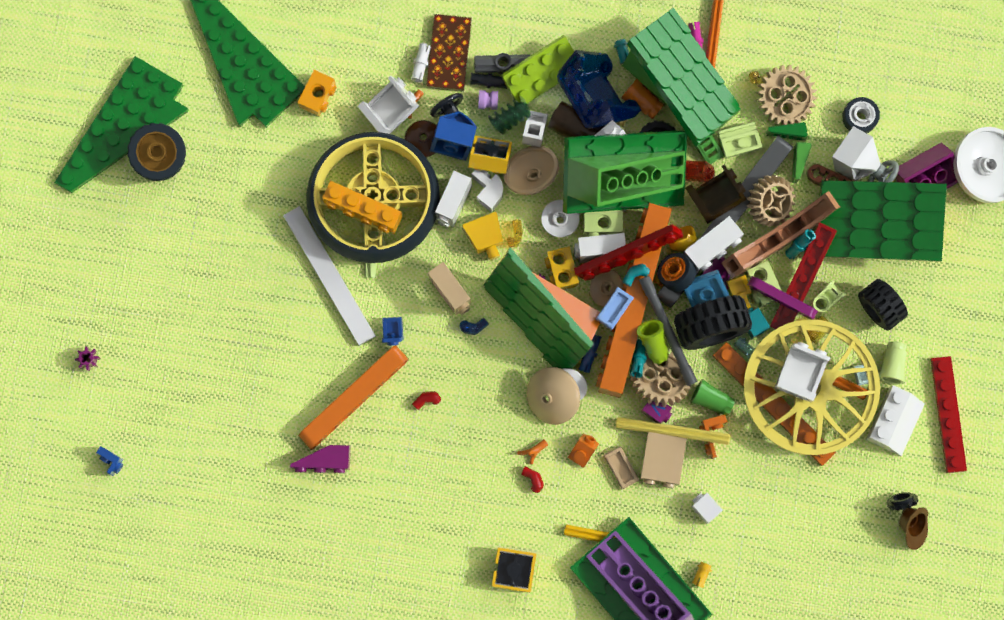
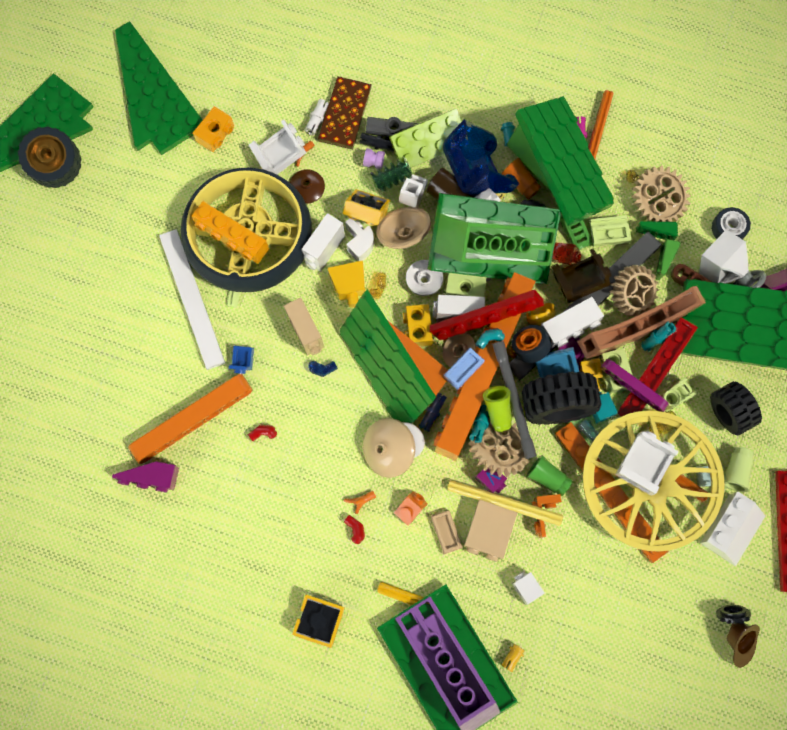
camera: 10 degrees right, 5 degrees down
(454, 129) = (334, 178): blue piece -> none

